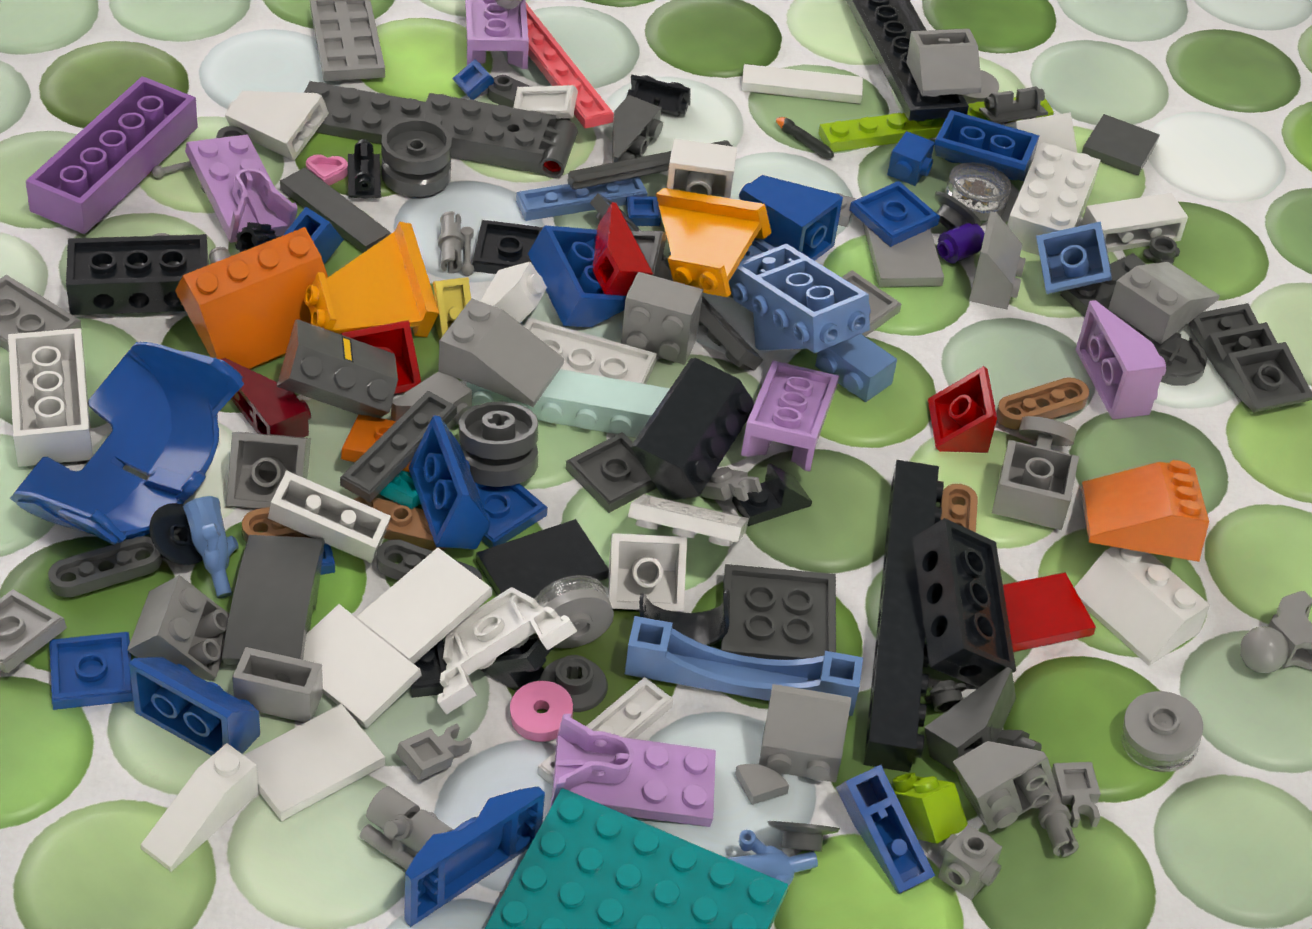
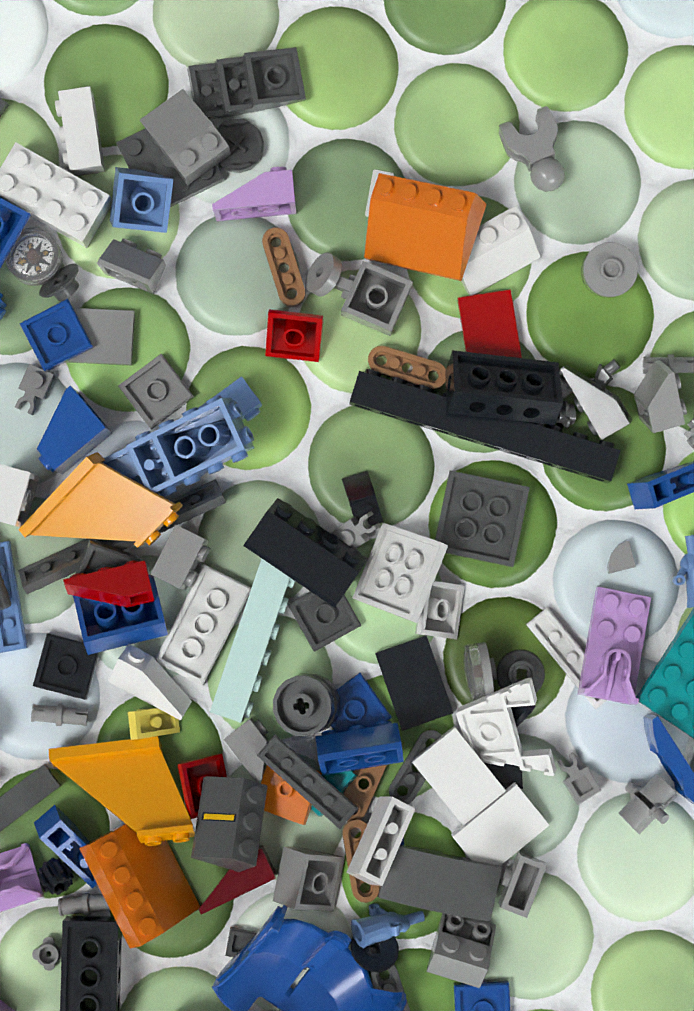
camera: 75 degrees left, 40 degrees up
(191, 706) = (533, 942): blue slope -> none
(203, 806) = (613, 939): white slope -> none
(314, 761) = (576, 862): white tile -> none
(467, 268) = (43, 699): light grey hinge -> none
(497, 354) = (224, 694): light grey slope -> none
(536, 696) = (560, 705): bright pink piece -> none
(643, 210) = (27, 548): blue tile -> none
(671, 657) = (533, 554): medium blue arch -> none
(704, 627) = (481, 587): black piece -> none
(790, 411) = (286, 472): lavender plate -> none
(802, 835) = (670, 539): dark grey piece -> none
(804, 733) = (600, 525): light grey slope -> none
(930, 806) = (657, 452): lime slope -> none
(960, 242) = (94, 286): dark purple brick -> none
(1078, 787) = (647, 343): light grey plate -> none
(1162, 250) = (113, 109): dark grey plate -> none

